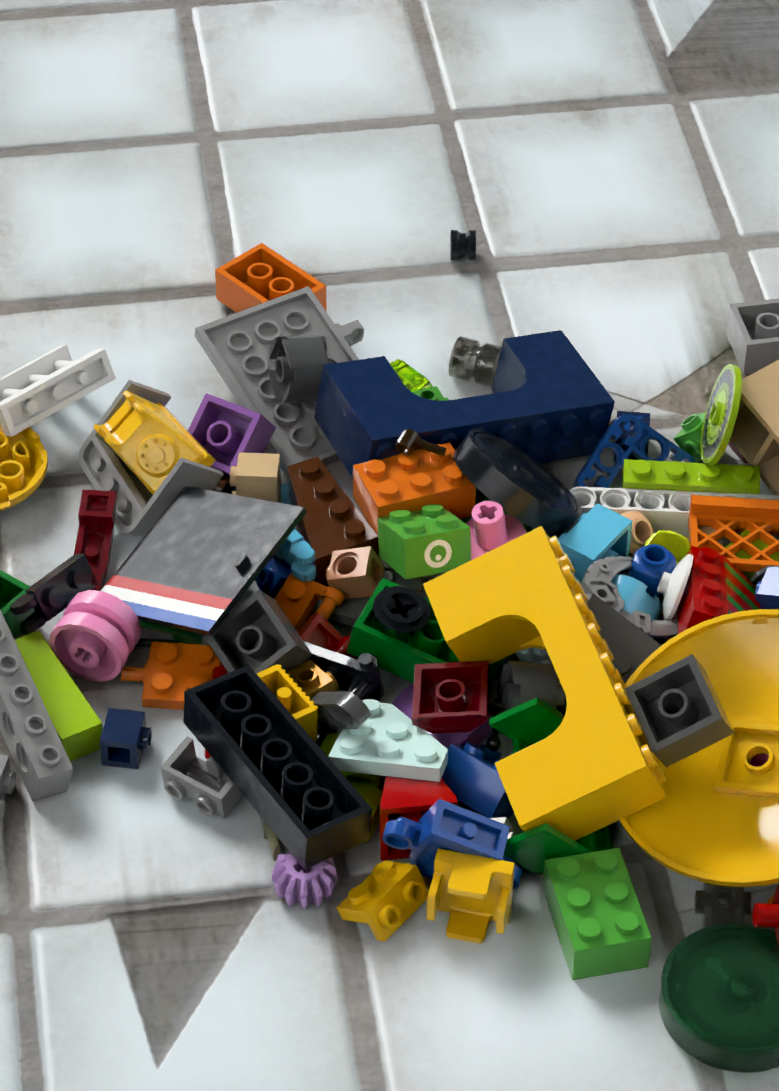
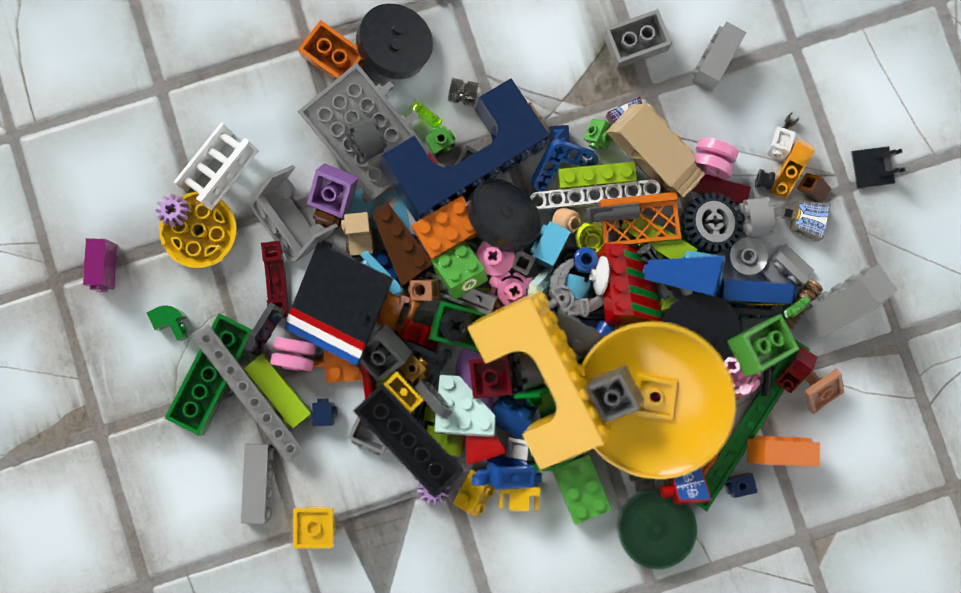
camera: 10 degrees left, 40 degrees up
(57, 895) = (314, 527): none -> yellow panel
(150, 440) = (294, 208): yellow piece -> none
(375, 284) = (394, 41): none -> black brick
(410, 439) = (440, 210): dark brown hand -> none
(711, 513) = (613, 212): none -> dark grey piece
(721, 414) = (612, 145): lime piece -> none

